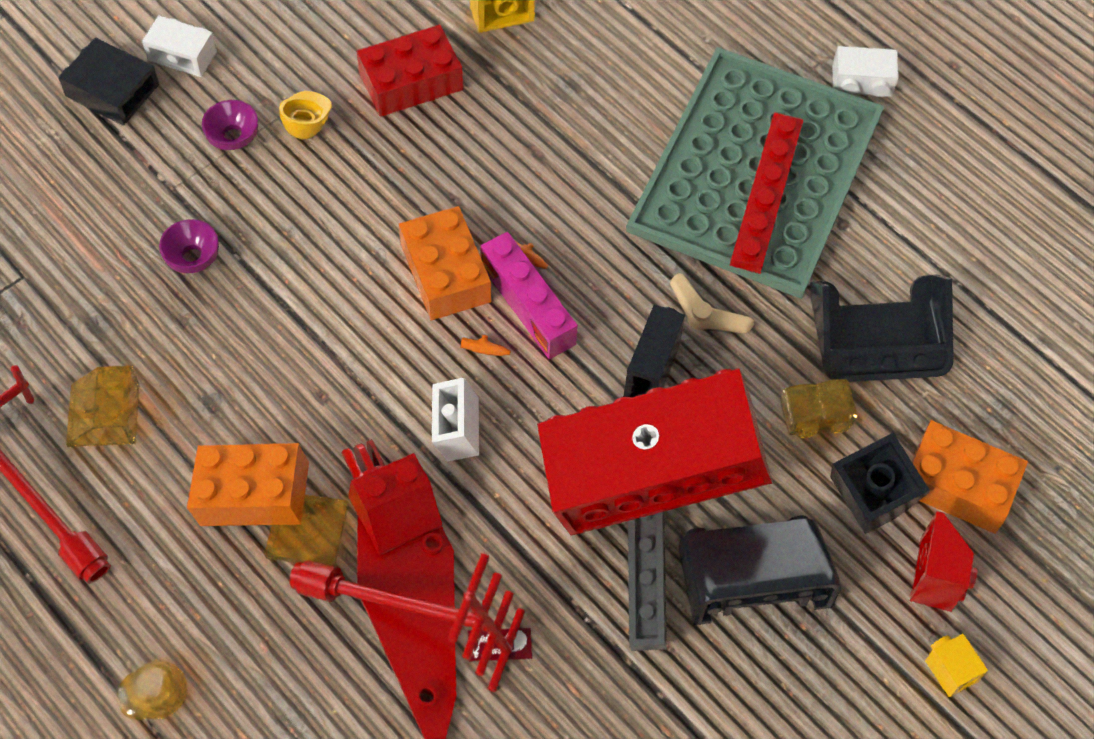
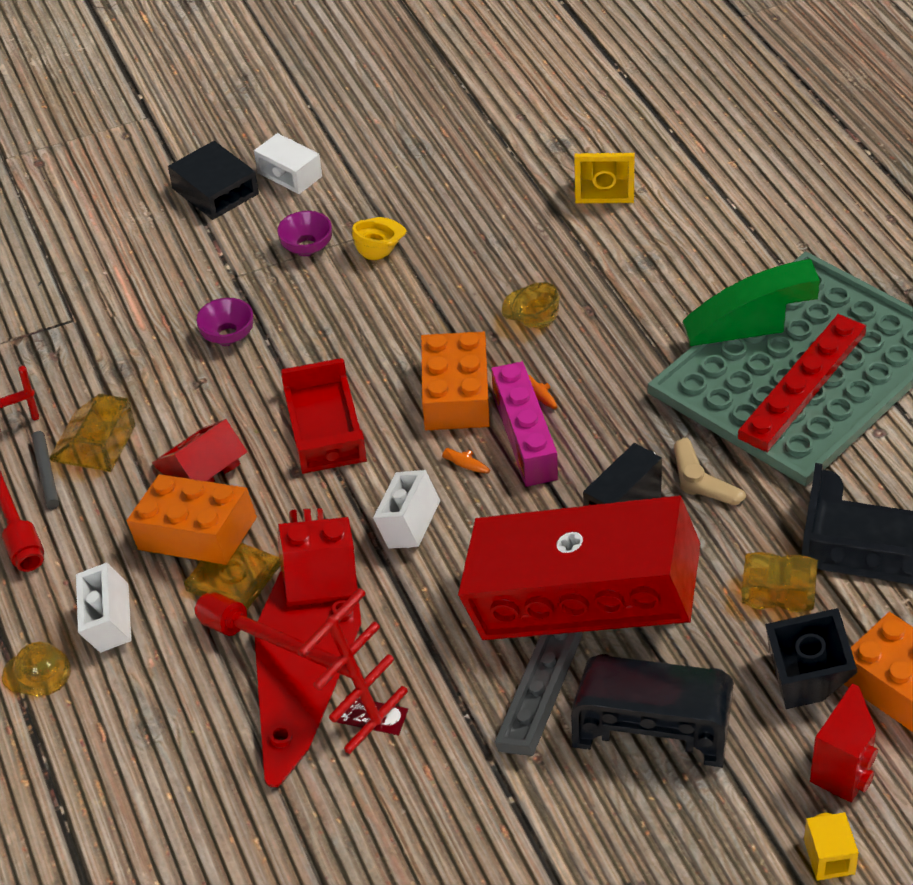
camera: 25 degrees right, 15 degrees down
(67, 460) = (45, 470): none -> dark grey bar
(198, 608) = (103, 607): none -> white brick
(225, 407) = (203, 453): none -> red slope
(328, 332) = (323, 416): none -> red panel
(410, 70) = (491, 218): red piece -> none
(486, 160) = (533, 305): none -> clear yellow hat
(700, 122) = (752, 305): none -> green slope

